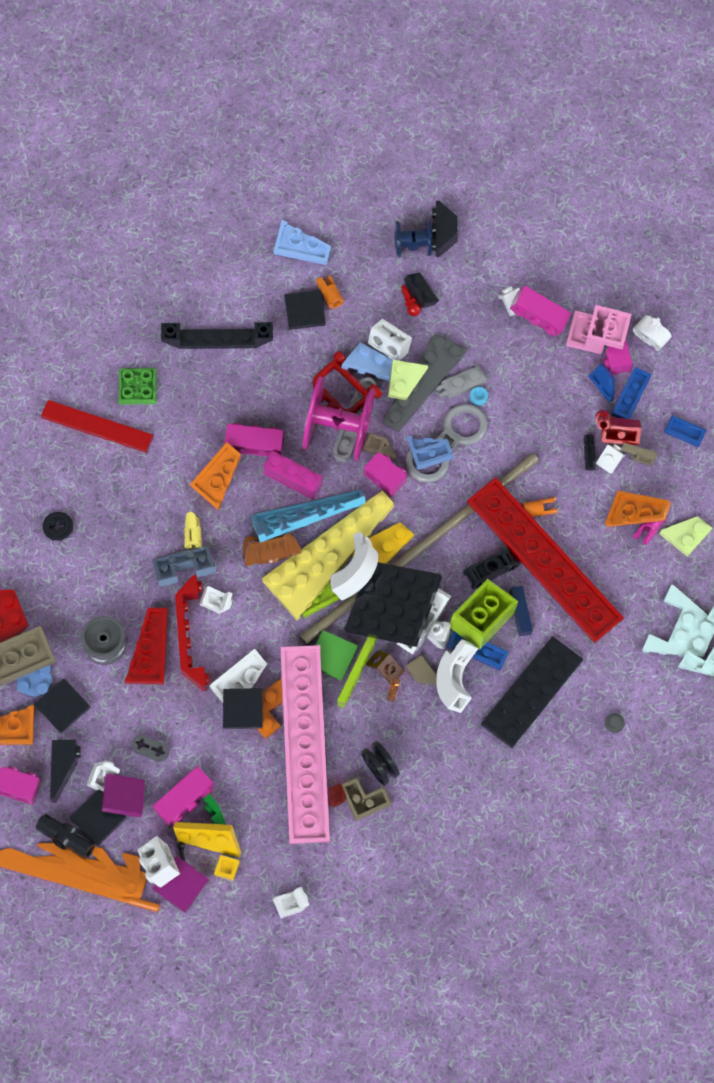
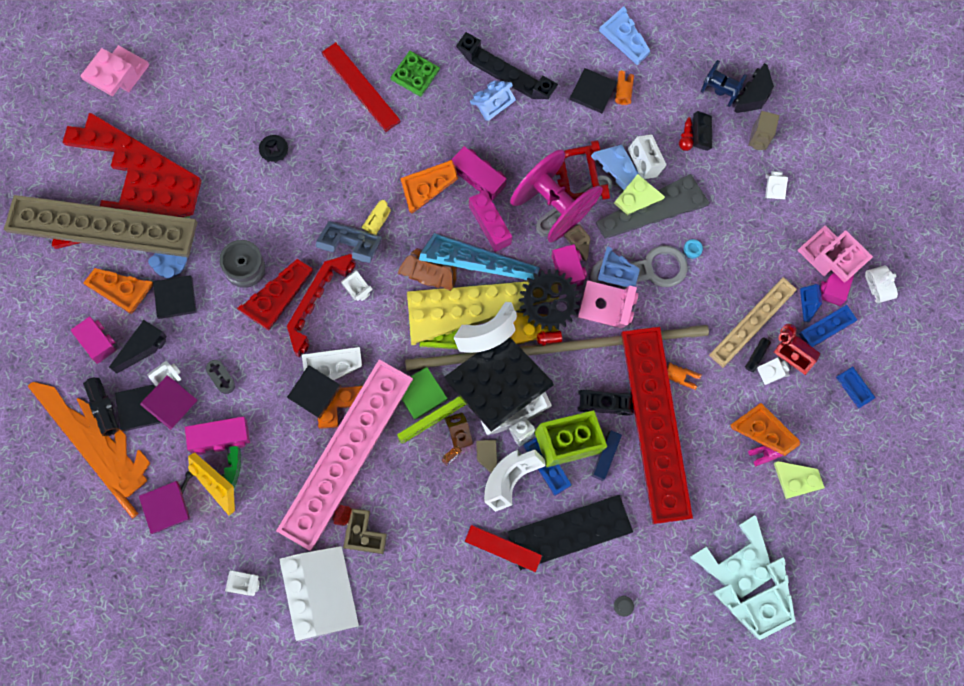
camera: 30 degrees right, 5 degrees up
(158, 862) = (156, 477): white brick -> none
(223, 367) = (493, 99): none -> light blue bracket
(226, 868) = (211, 518): yellow plate -> none
(359, 870) = (318, 593): none -> white slope
(380, 763) = (395, 512): black wheel -> none
(402, 521) = (544, 284): none -> black gear
(406, 545) = (549, 337): none -> red pin
(449, 480) = (617, 308): none -> bright pink bracket
(462, 383) = (685, 229): light grey hinge -> none
(473, 260) = (763, 130): none -> dark tan brick
(487, 738) = (503, 548): none -> red sticker
(540, 311) = (793, 207): dark pink brick -> none
(568, 428) = (752, 322): none -> tan tile
(639, 454) = (801, 383): dark tan tile -> none

